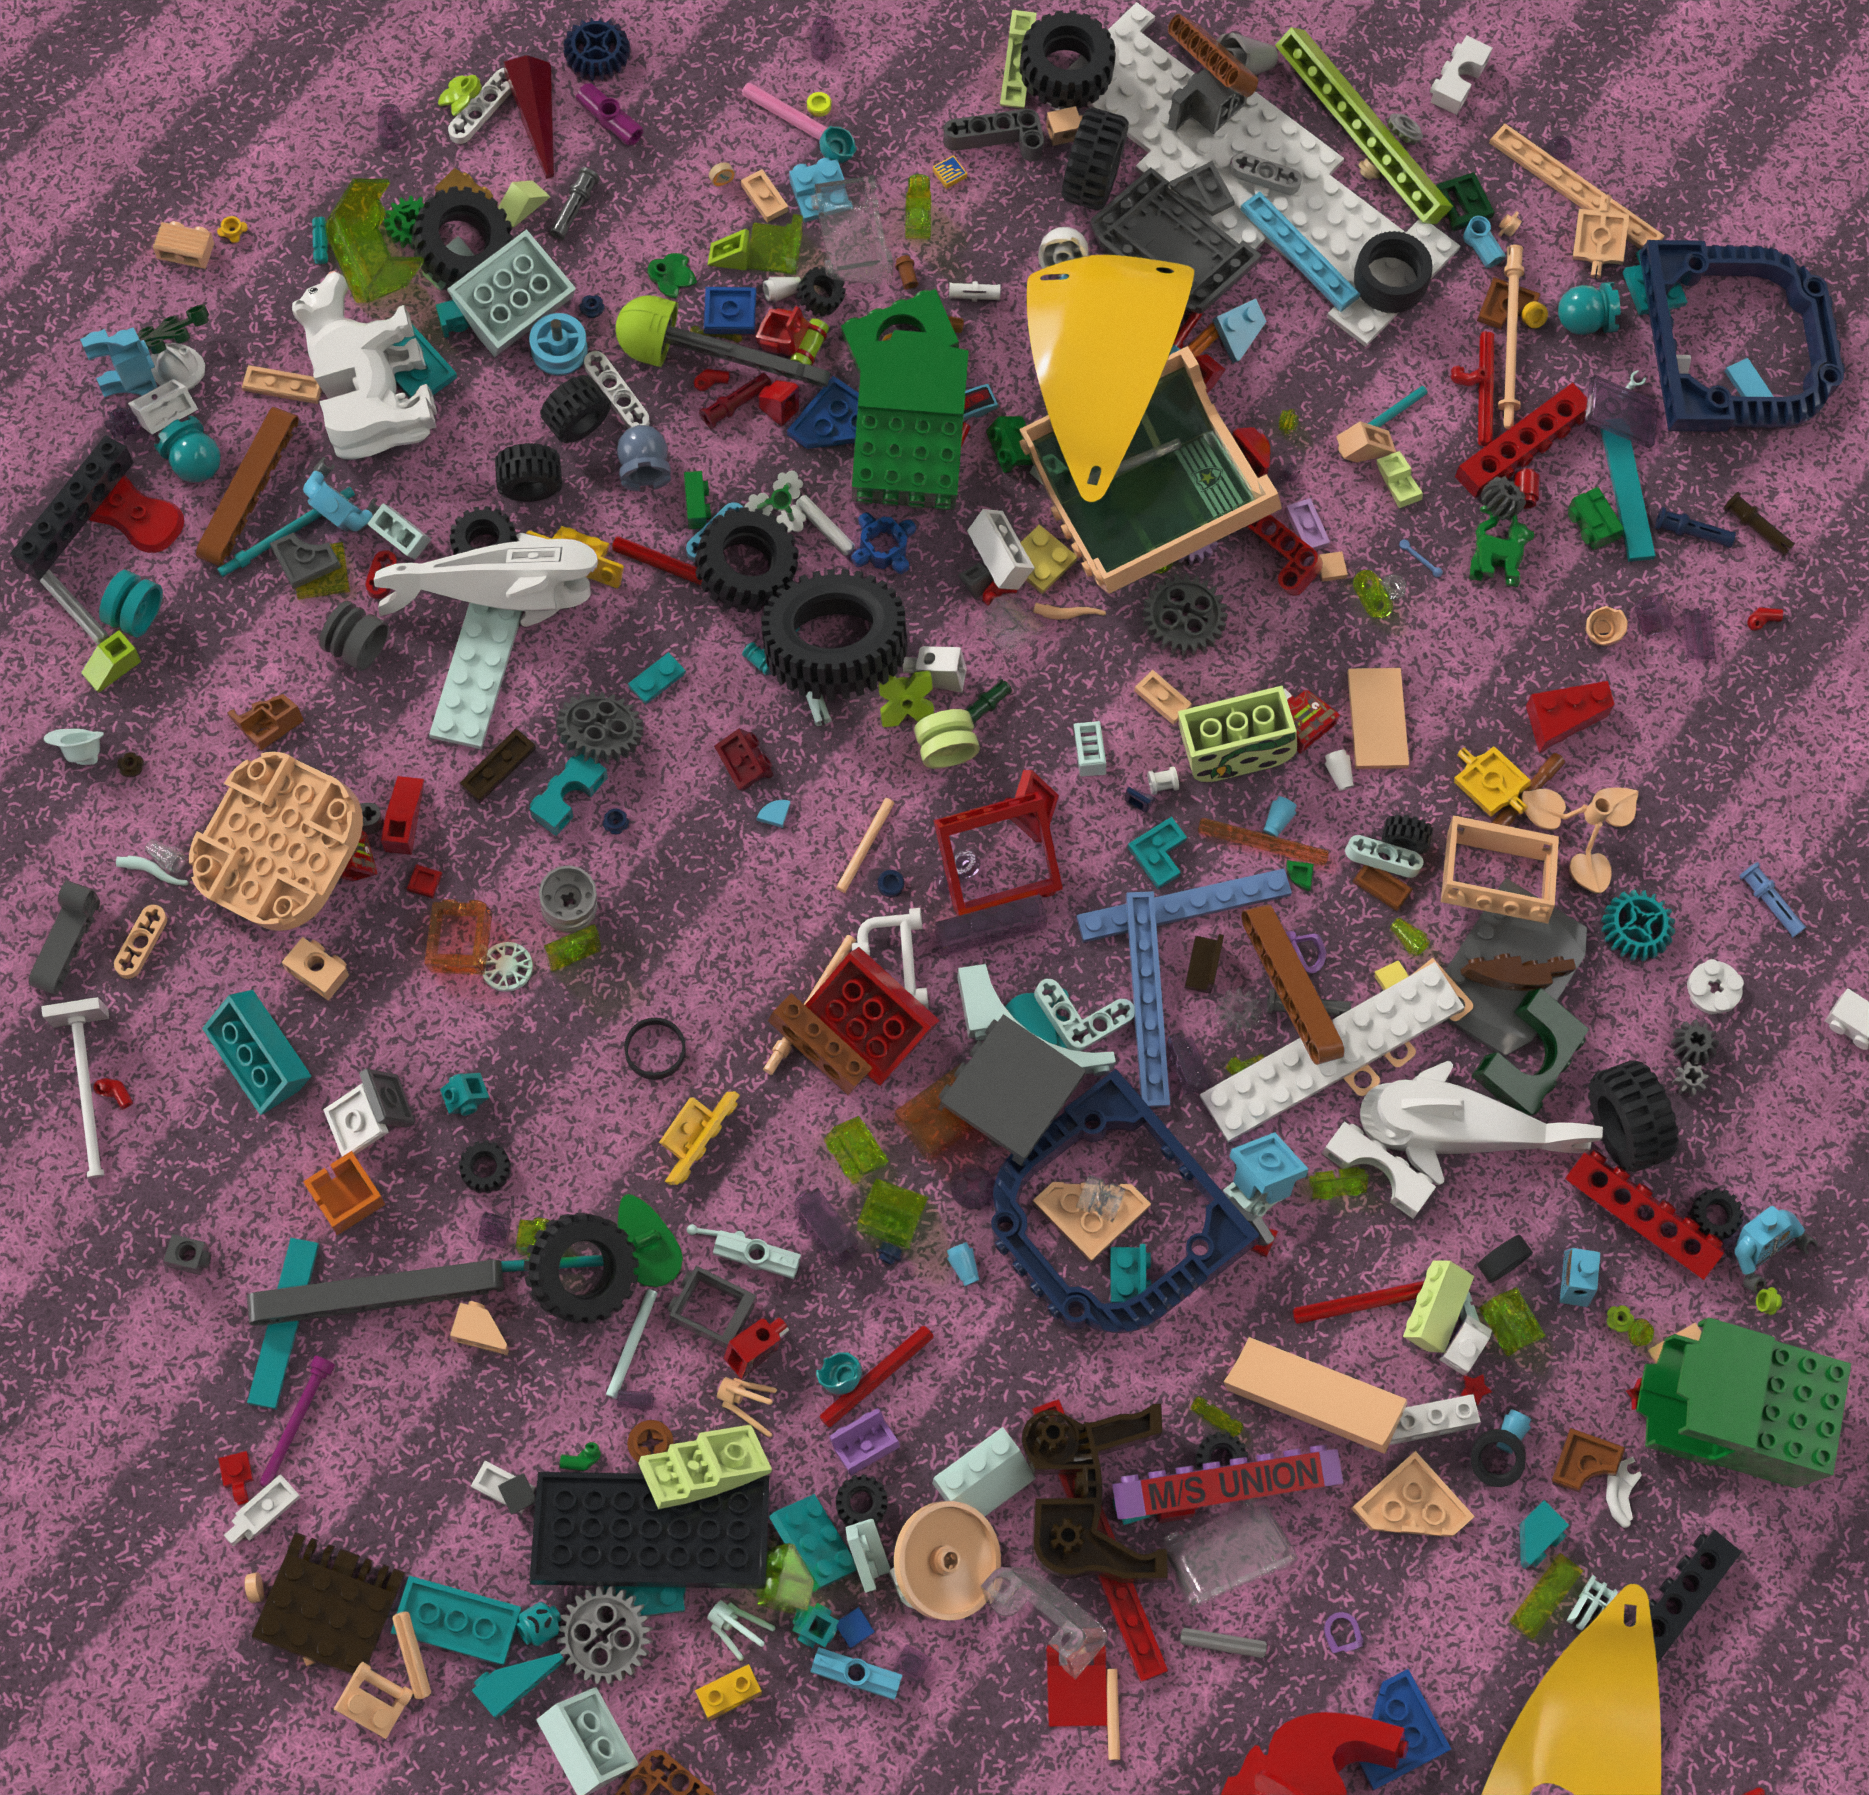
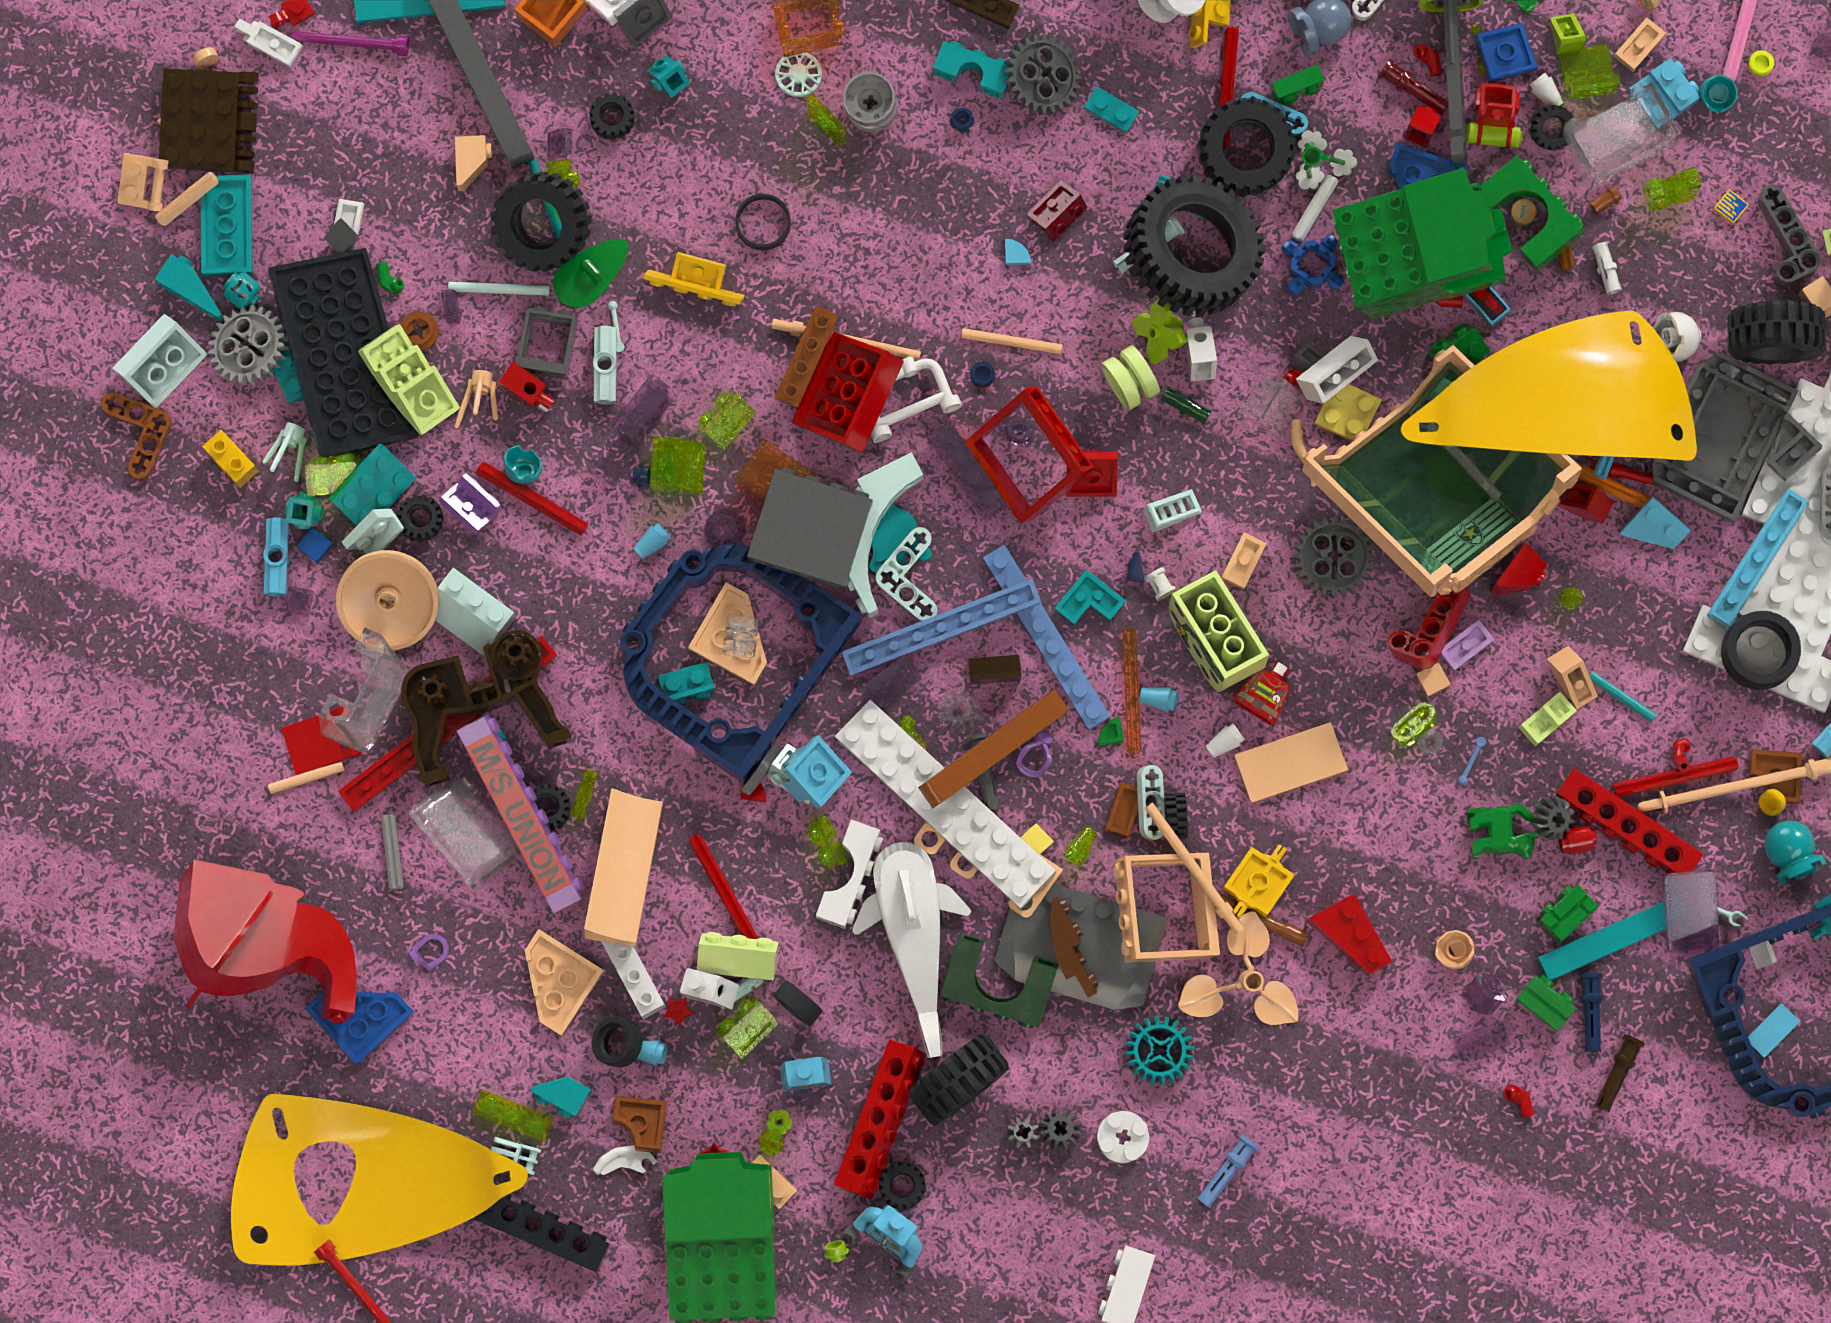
camera: 80 degrees right, 10 degrees up
(1513, 818) = (1223, 909): none -> light nougat bar
(1678, 563) = (1546, 1002): none -> green brick

